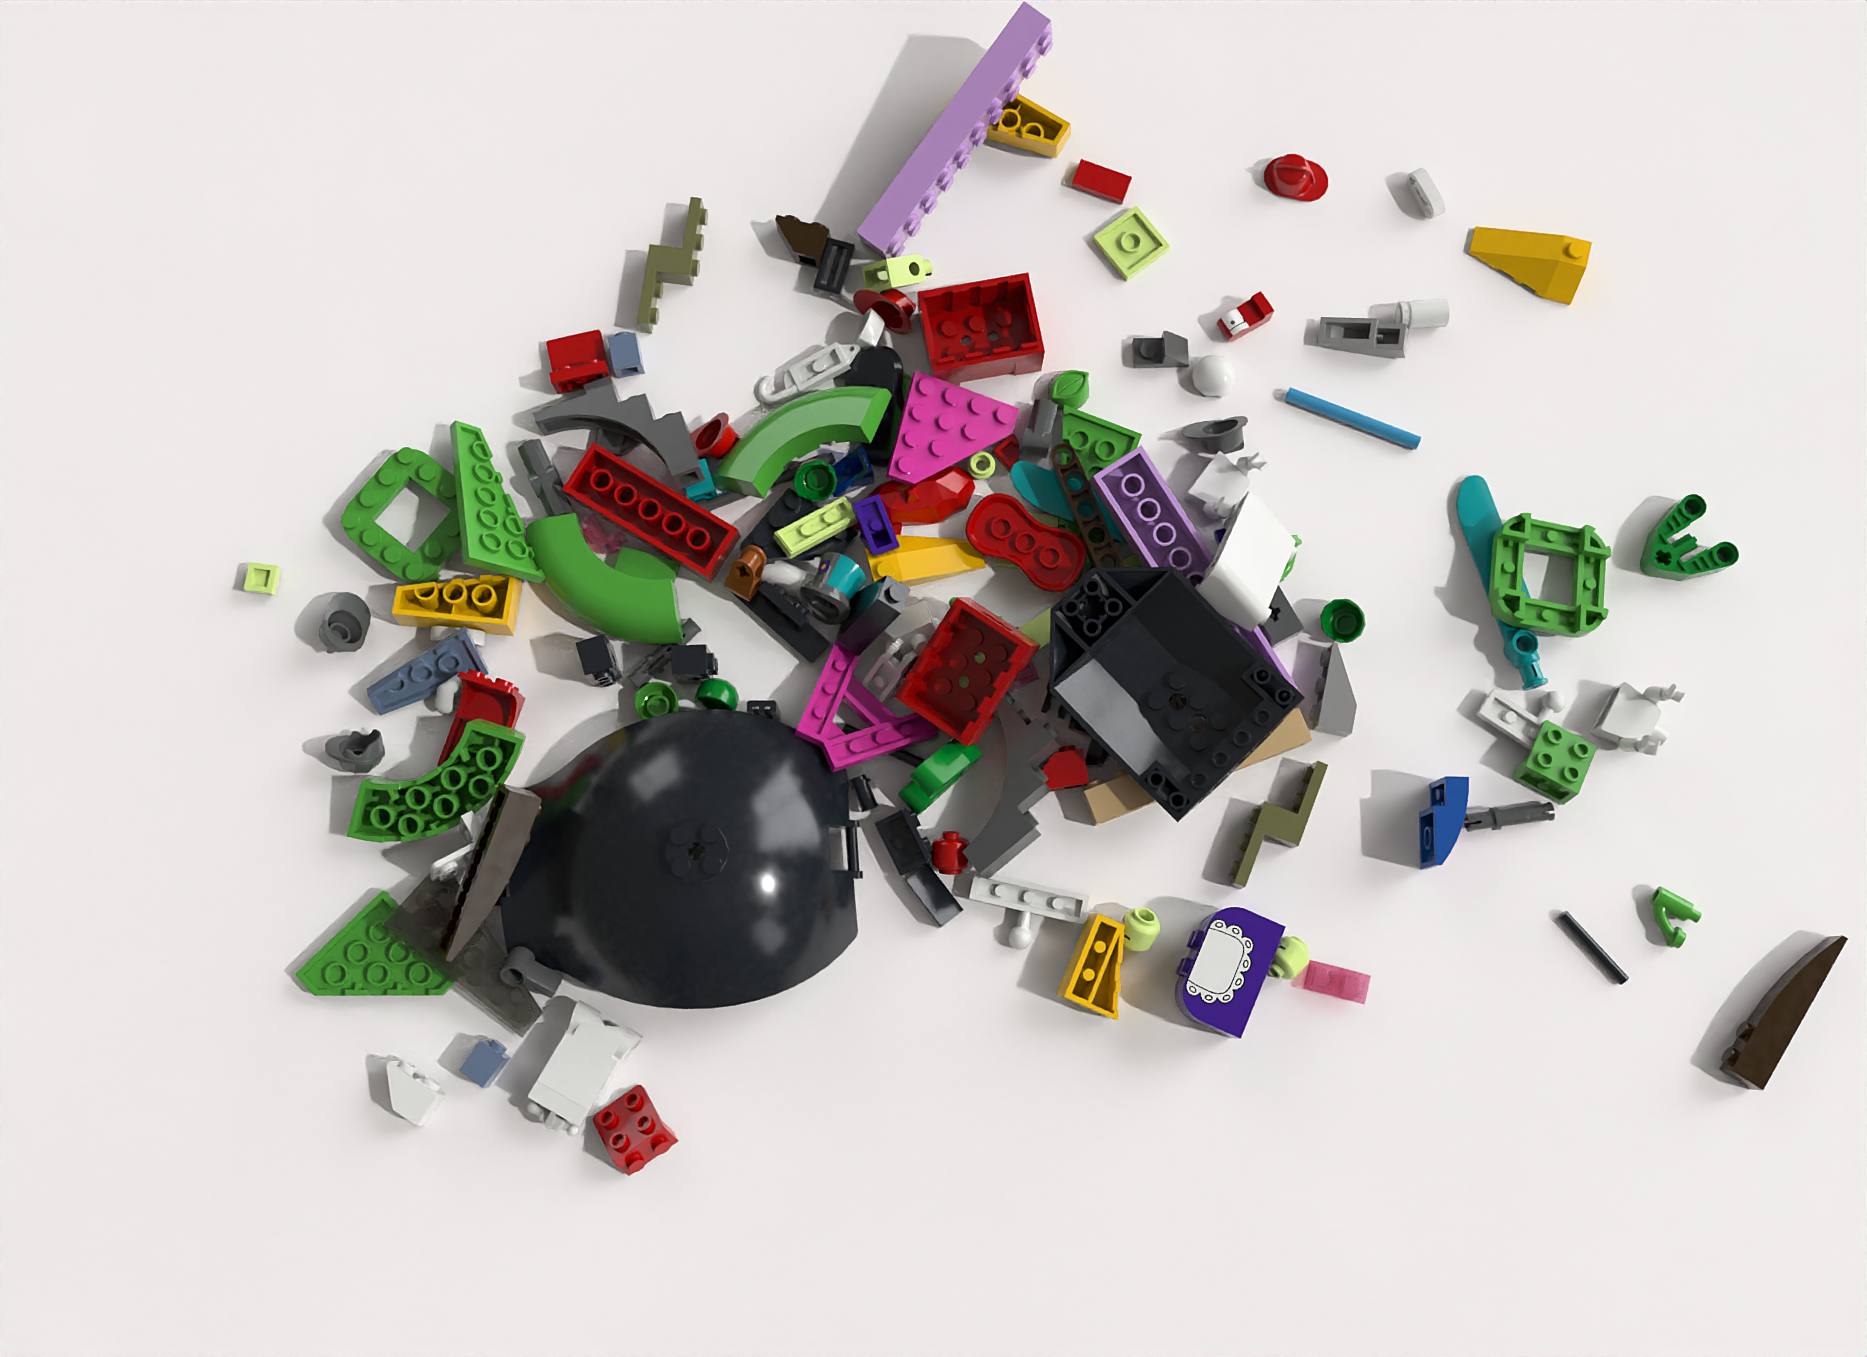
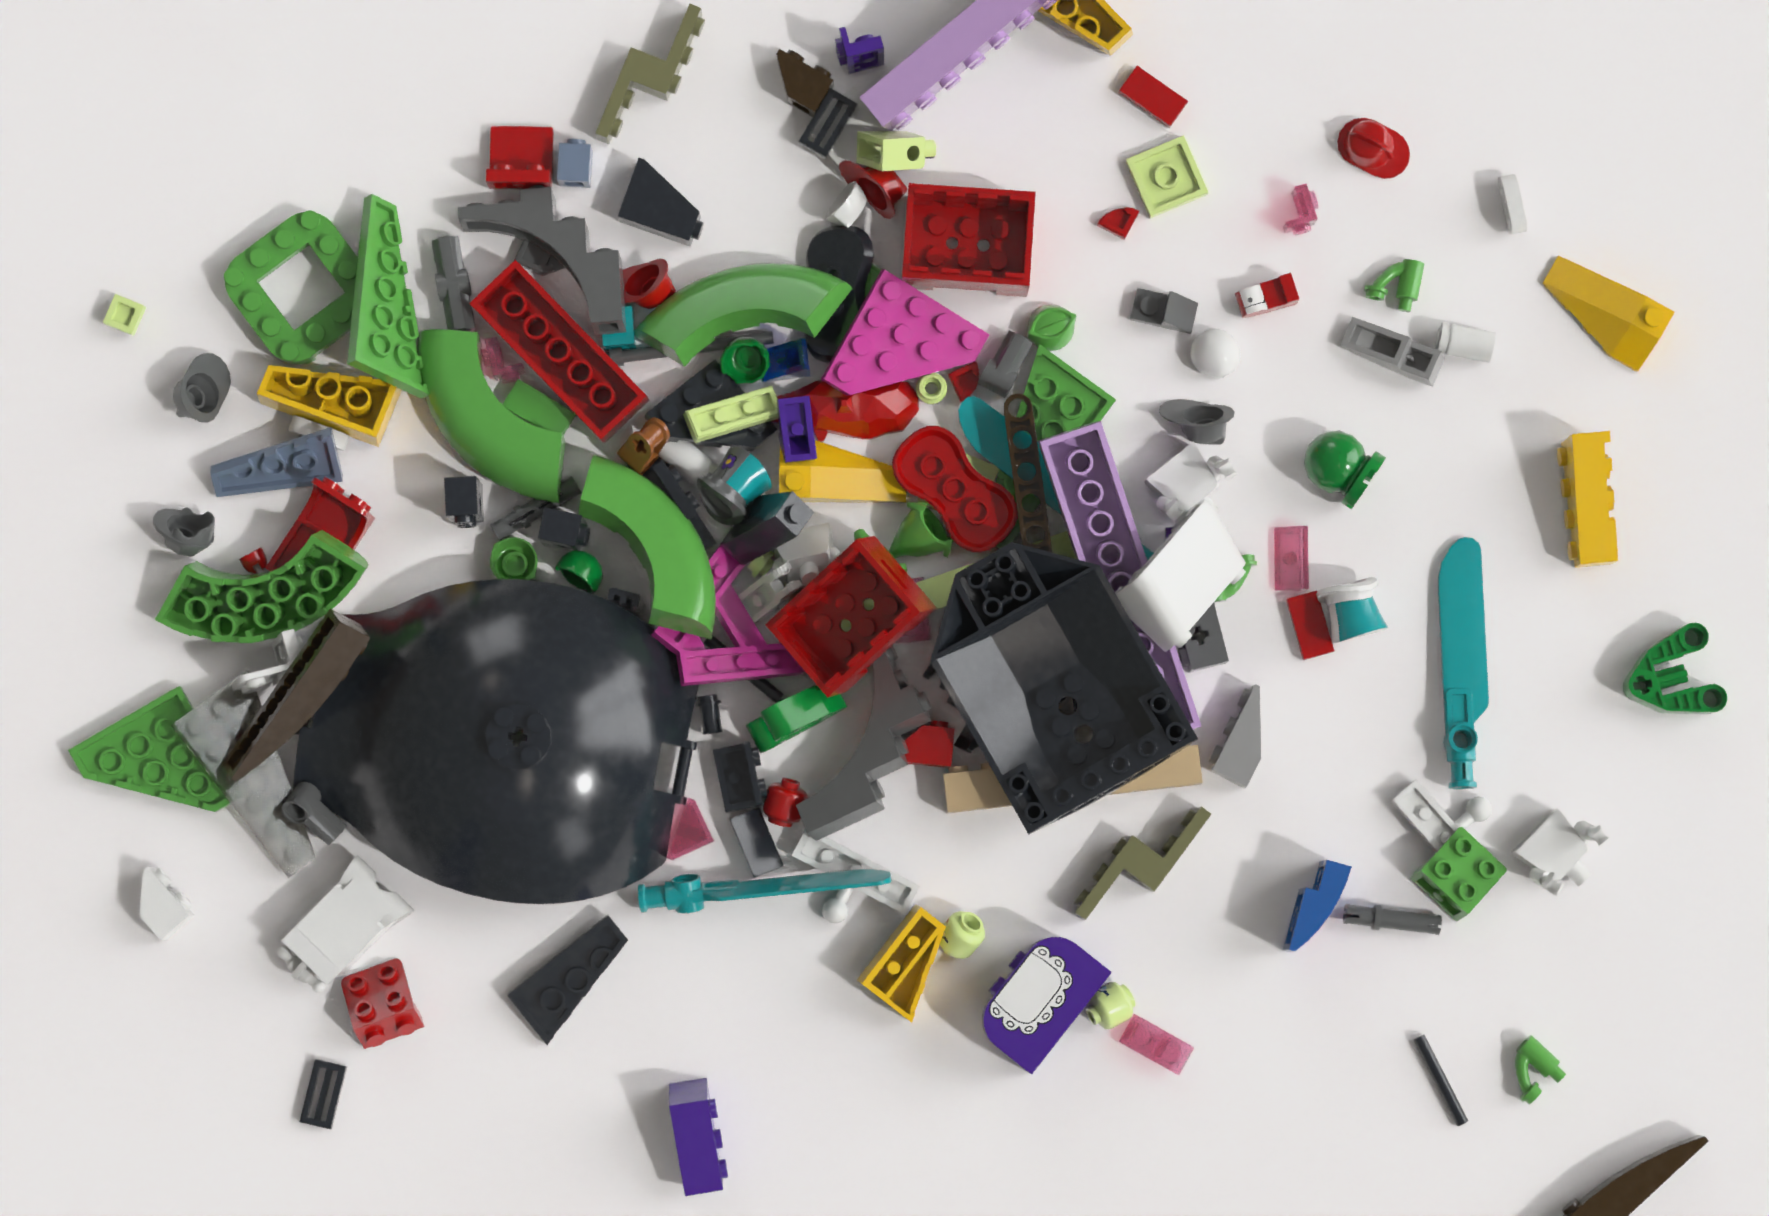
camera: 15 degrees right, 5 degrees up
(424, 760) = (253, 558): none -> red hinge
(445, 694) = (292, 491): white arm -> none
(485, 1062) = (244, 893): sand blue brick -> none
(601, 1201) = (316, 1121): none -> black tile
(707, 372) = (658, 207): none -> black slope
(782, 650) = (662, 541): none -> bright green brick
(792, 1069) = (561, 983): none -> black wing
(811, 372) = (772, 236): white plate -> none
(846, 202) = (860, 55): none -> dark purple bracket
(874, 650) = (761, 564): none -> yellowish green plate
(874, 903) = (691, 832): none -> clear pink slope
(886, 957) = (688, 894): none -> teal piece
(951, 1177) = (696, 1137): none -> dark purple wedge
(1006, 589) = (920, 534): none -> bright green hat
(1101, 289) = (1119, 221): none -> red tile
(1255, 238) = (1305, 204): none -> clear pink bracket
(1329, 530) = (1291, 558): none -> clear pink slope
(1342, 620) = (1274, 662): green hair -> none
(1350, 438) = (1339, 464): none -> green tile
(1353, 418) = (1333, 423): dark azure piece -> none
(1360, 281) = (1409, 283): none -> bright green plant
(1361, 582) = (1309, 625): none -> red tile
(1397, 557) = (1352, 609): none -> hat
(1567, 414) = (1588, 499): none -> yellow wedge
(1588, 582) = (1532, 631): bright green plate -> none

